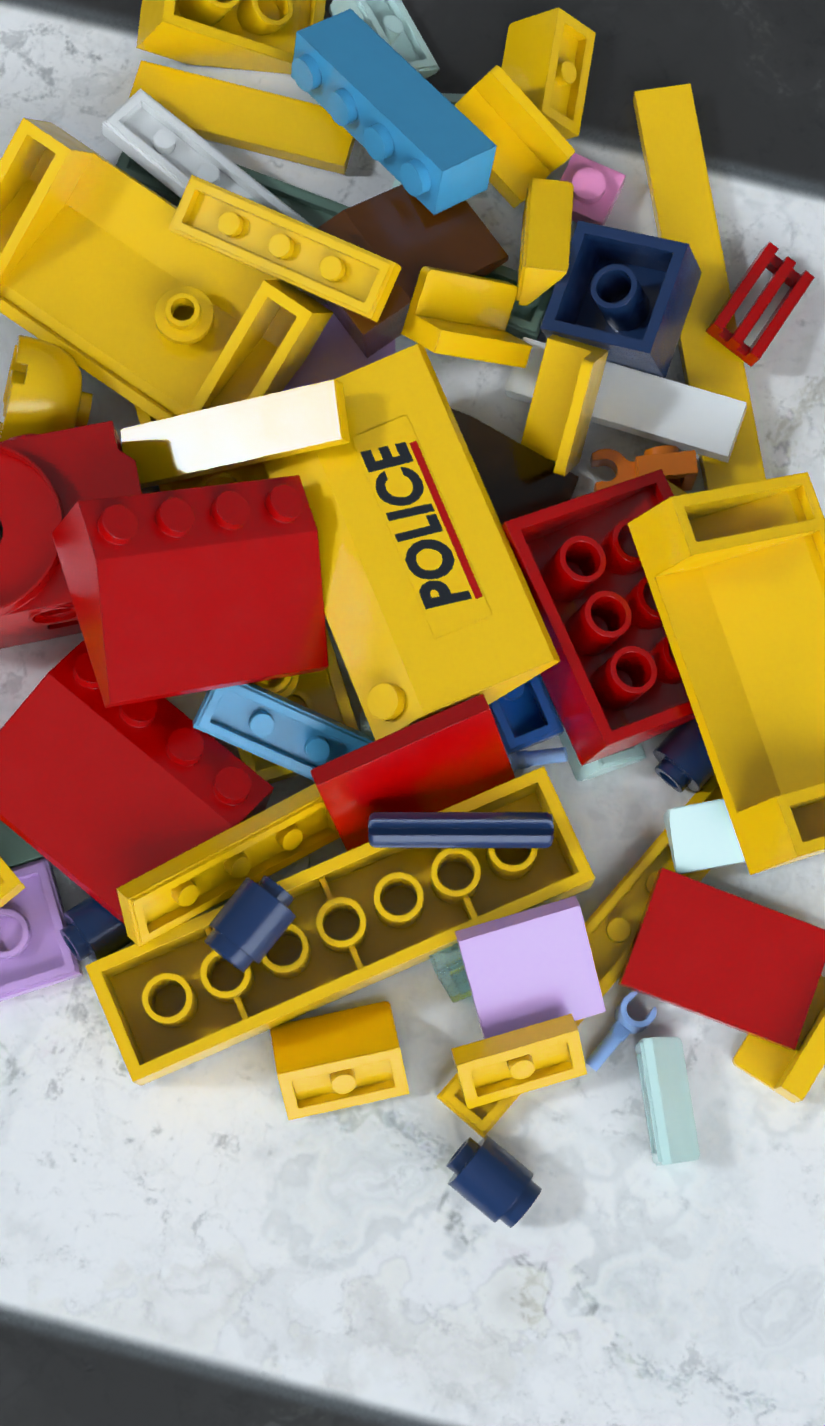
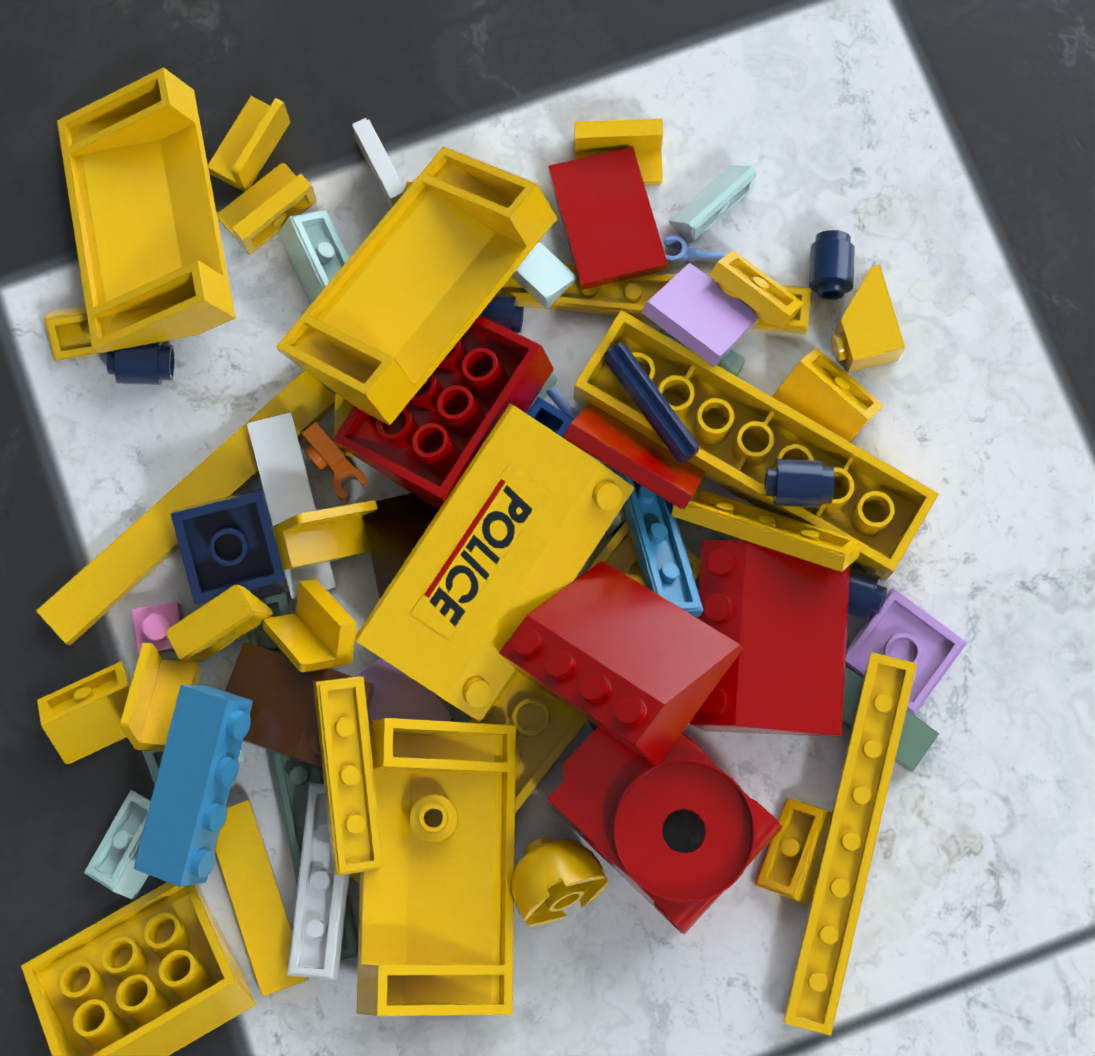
camera: 125 degrees left, 0 degrees up
(238, 433) = (495, 718): tile -> none
(390, 1164) = (869, 328): none -> yellow slope
(782, 273) = (168, 456): red tile -> none

